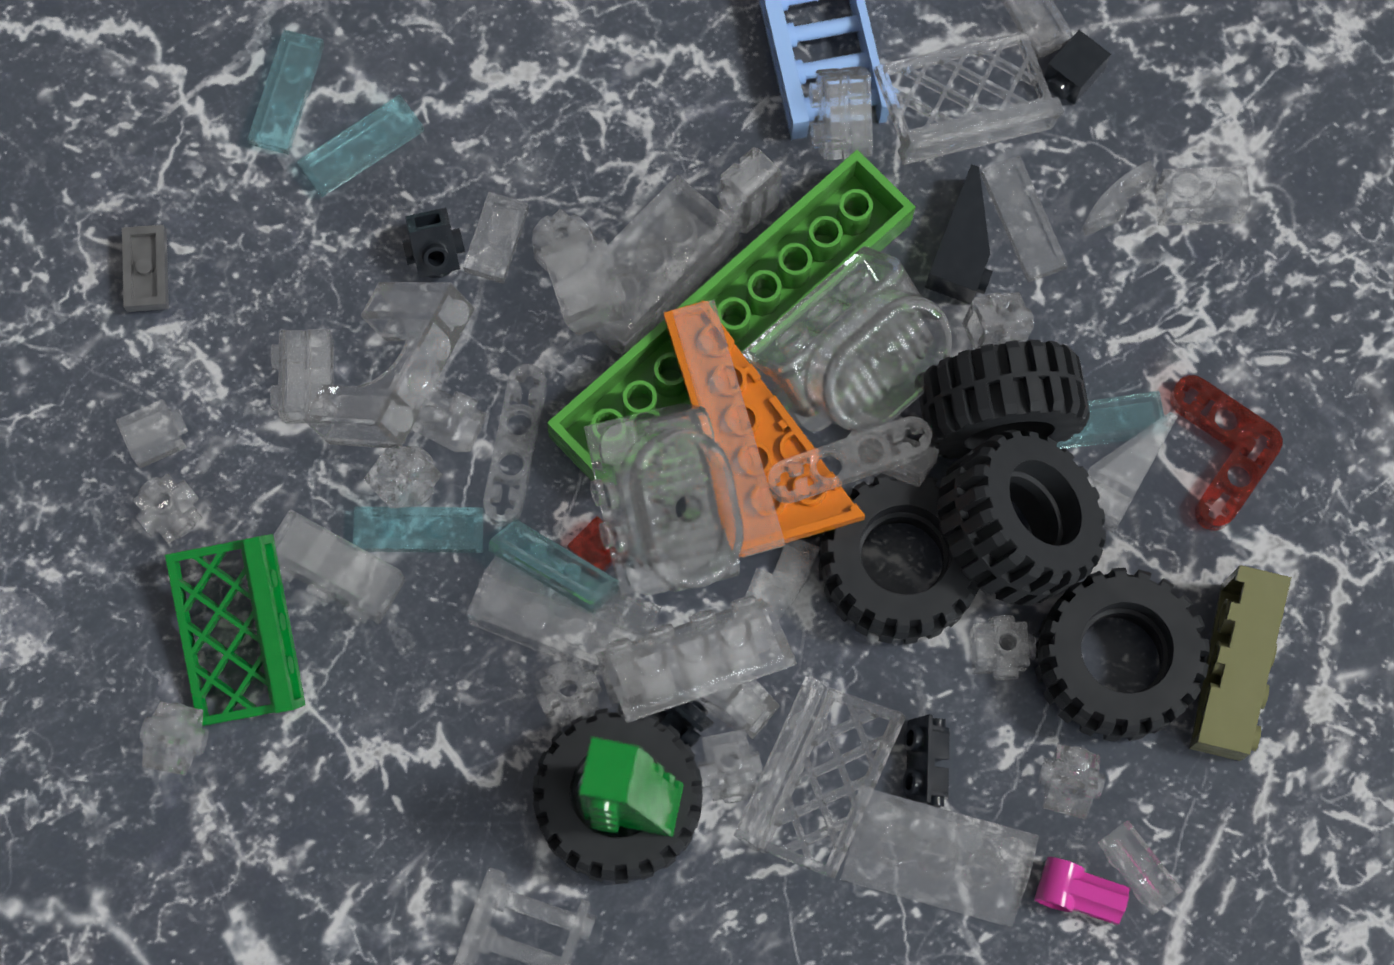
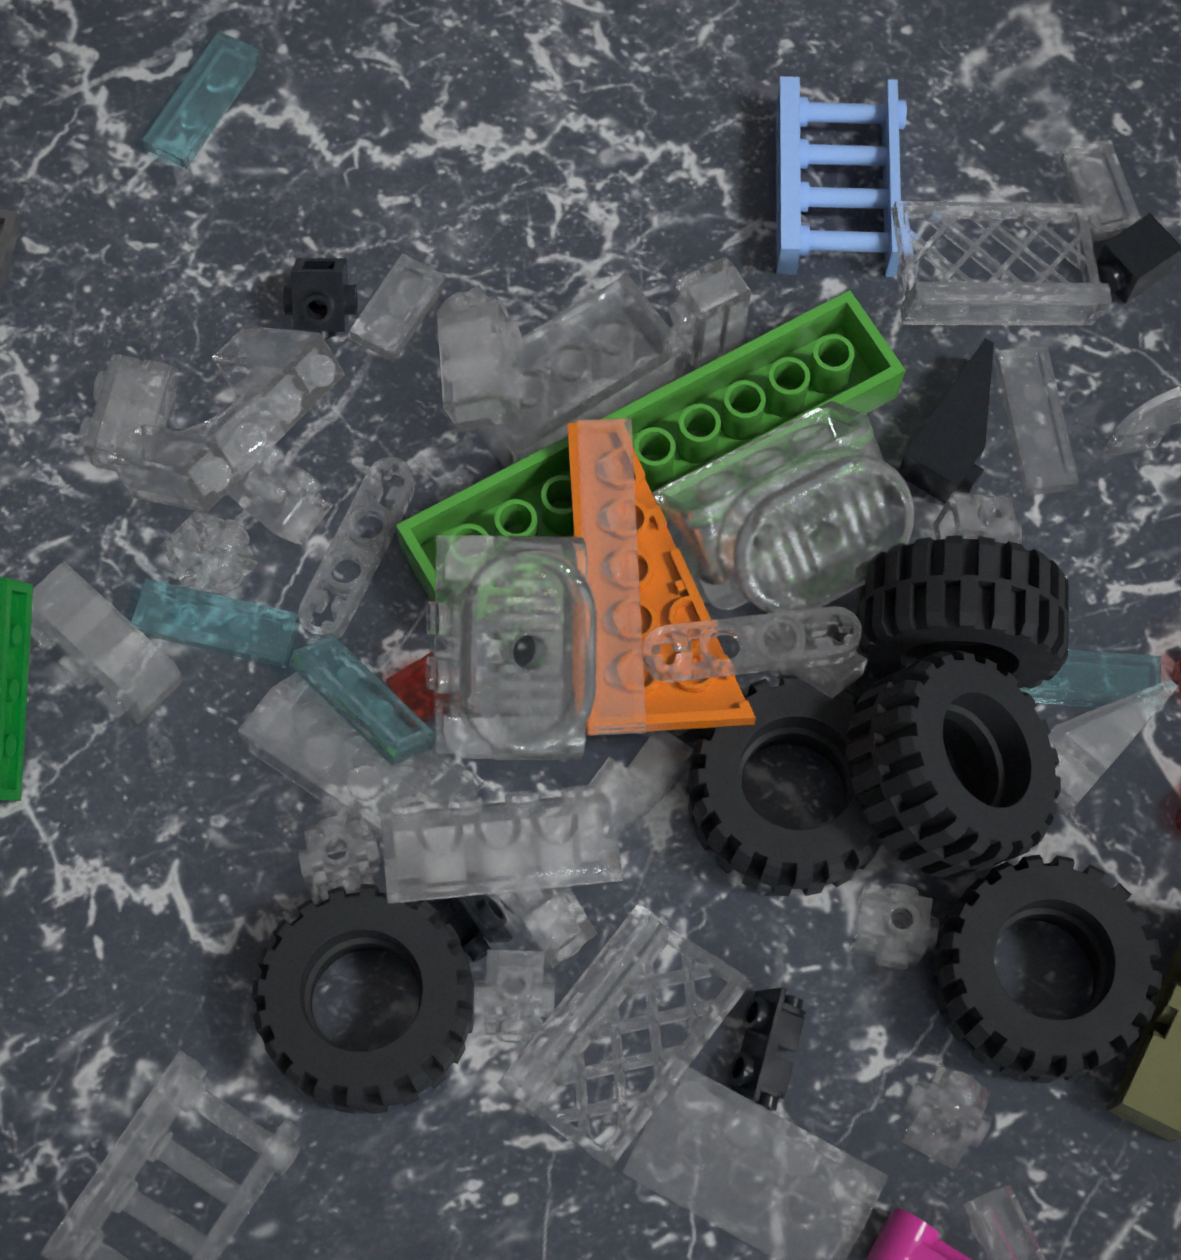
camera: 15 degrees right, 5 degrees down
(360, 146) = (270, 175): clear light blue tile -> none
(628, 790) = (360, 986): green wedge -> none
(842, 112) = (843, 247): clear brick -> none

